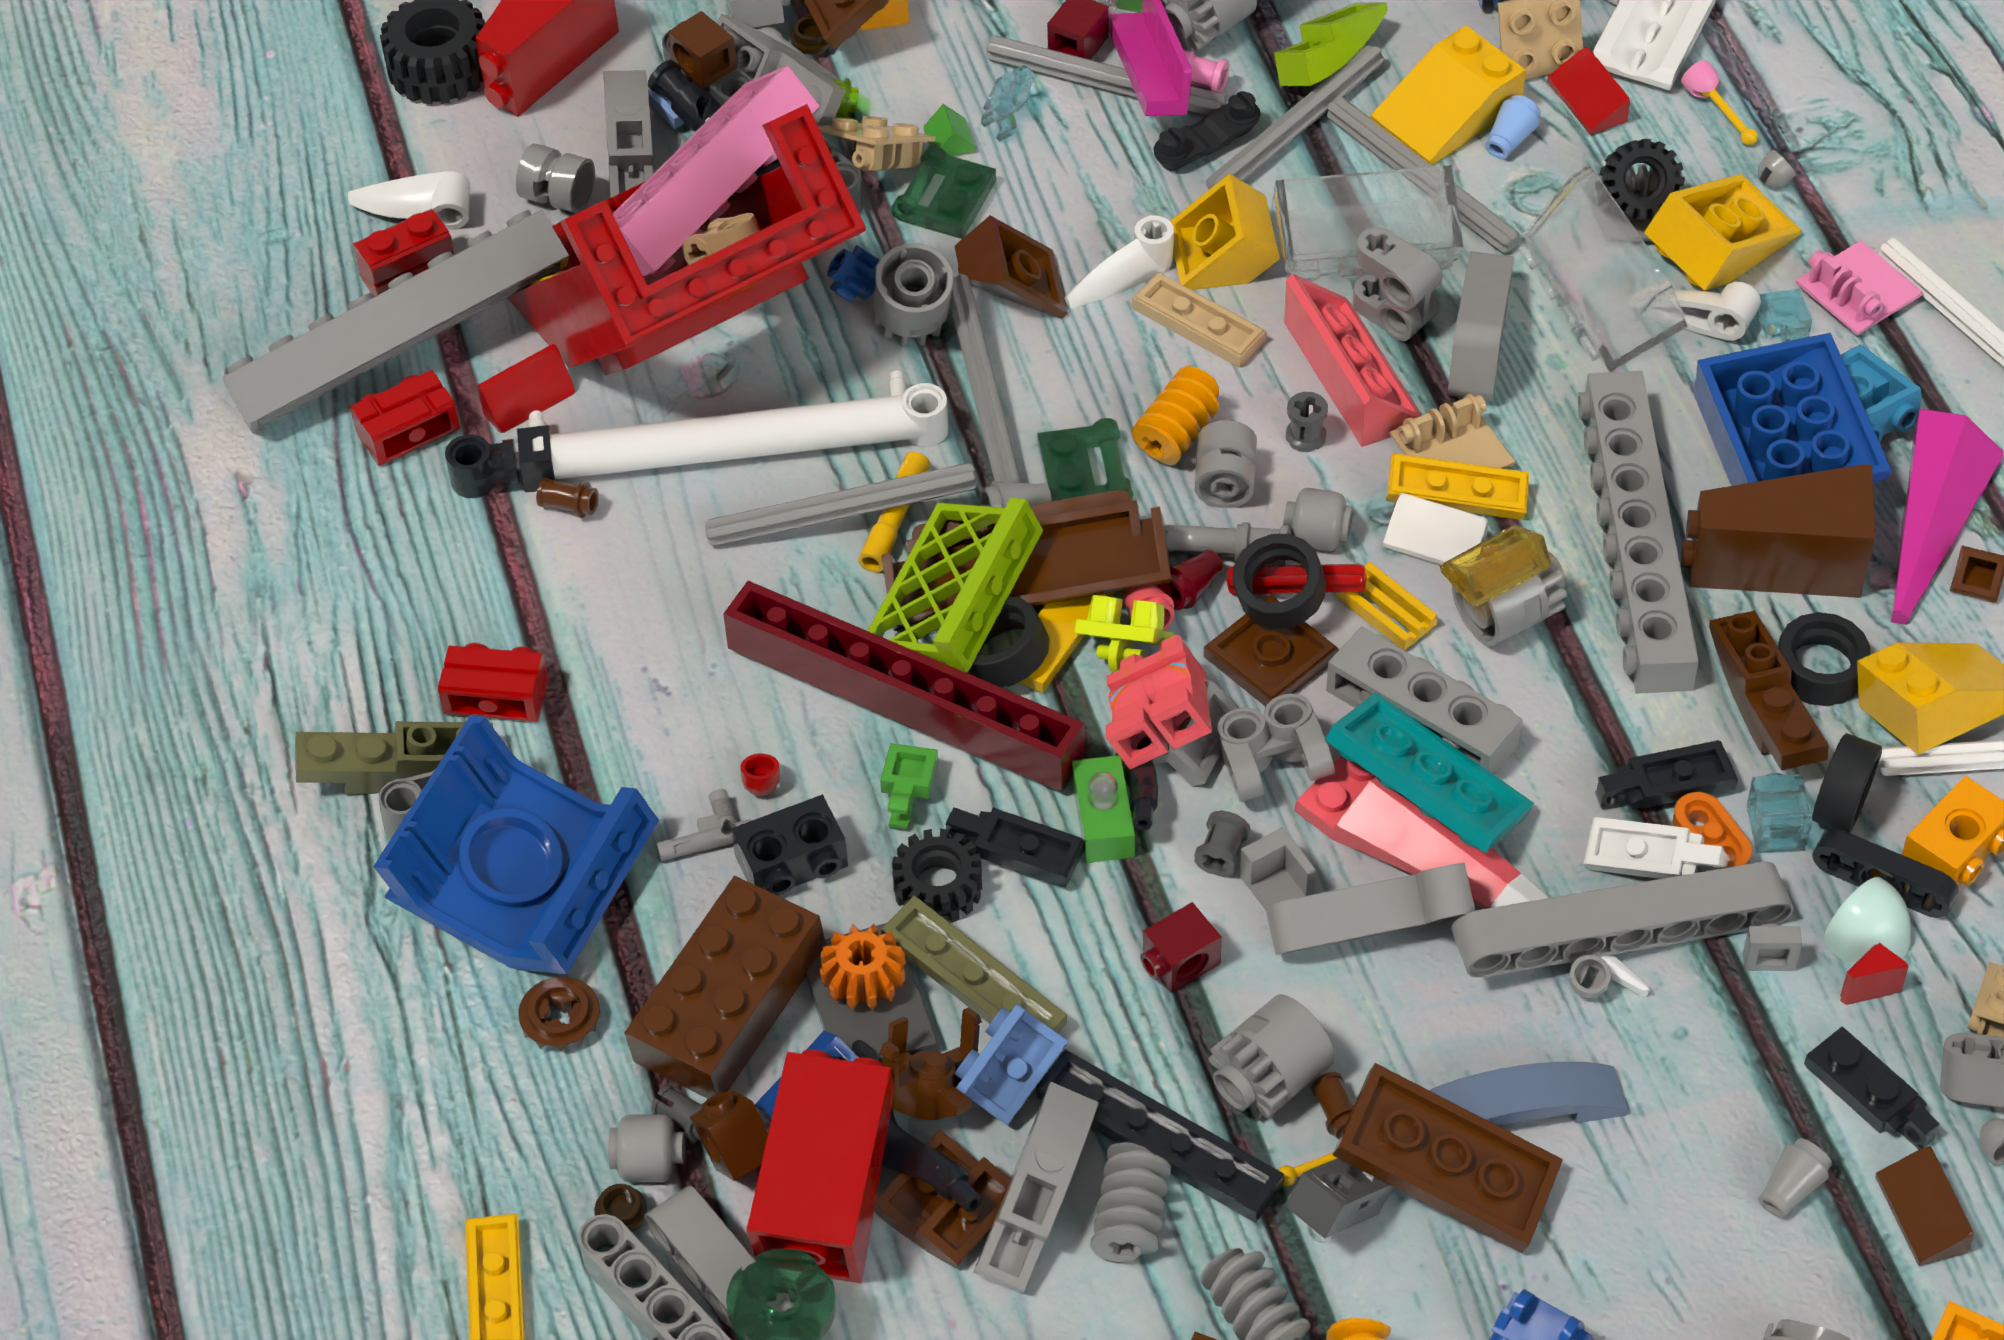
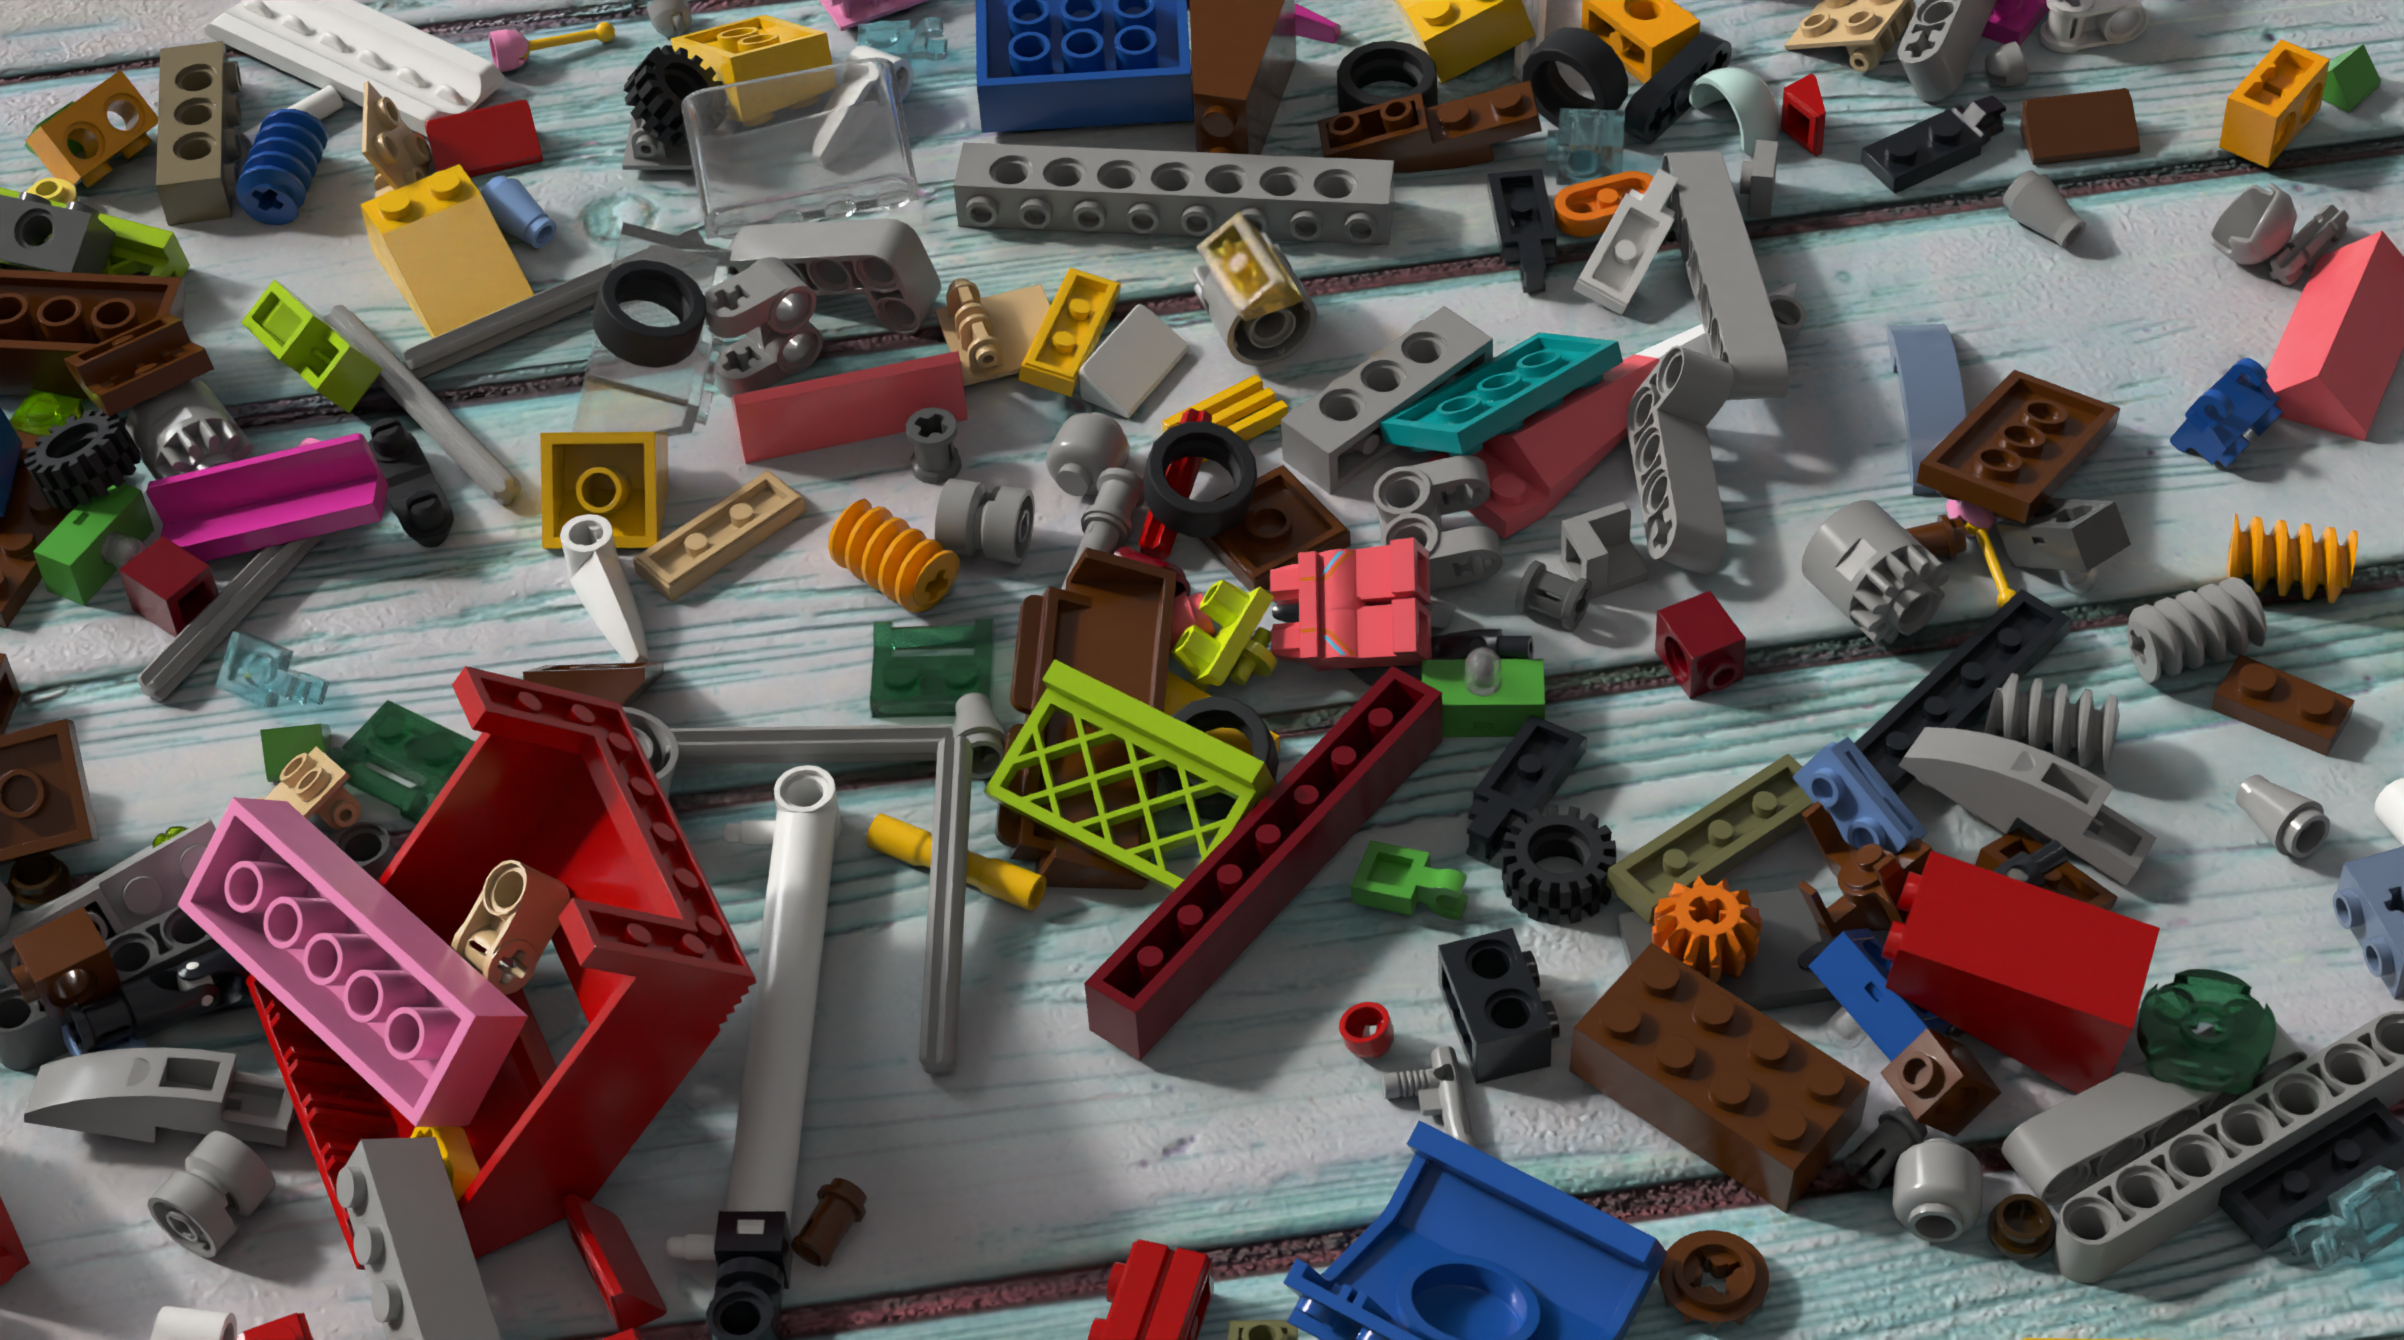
camera: 80 degrees left, 5 degrees down
(1350, 167) = (643, 343): none -> black tyre

